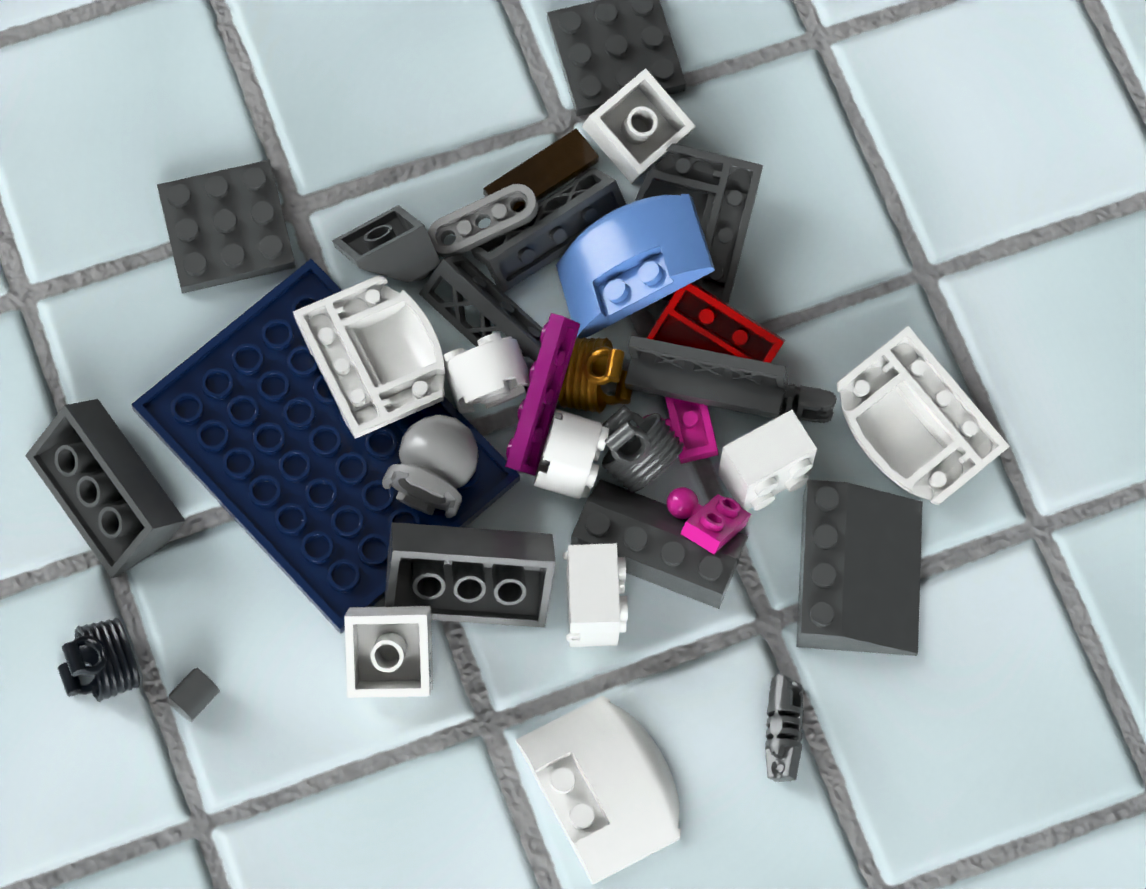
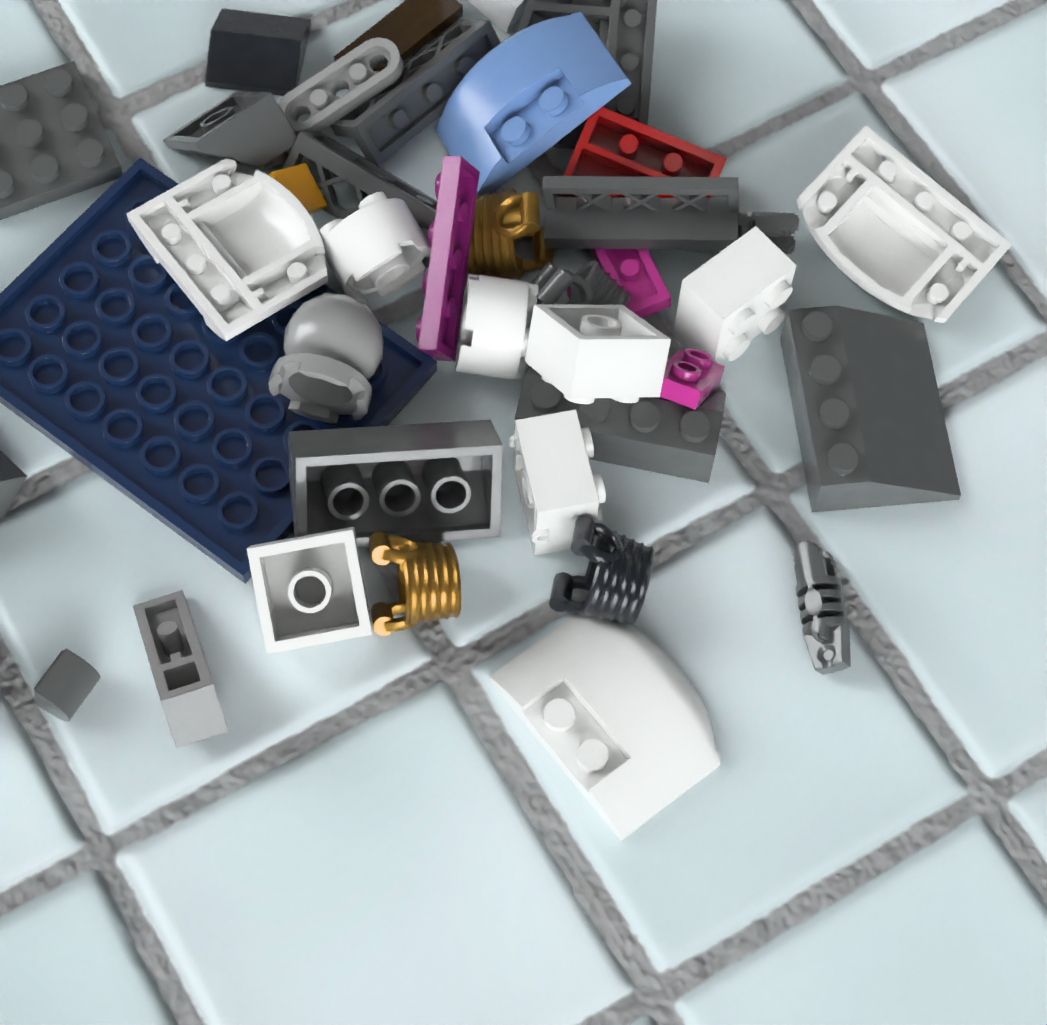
camera: 10 degrees left, 5 degrees down
(280, 694) = (179, 669): none -> light grey slope
(421, 171) = (256, 51): none -> black slope
(435, 306) = (302, 185): none -> light orange tile
(478, 657) = (425, 578): none -> pearl gold piece
(625, 679) = (614, 577): none -> black piece
(643, 496) = (597, 352): none -> white brick

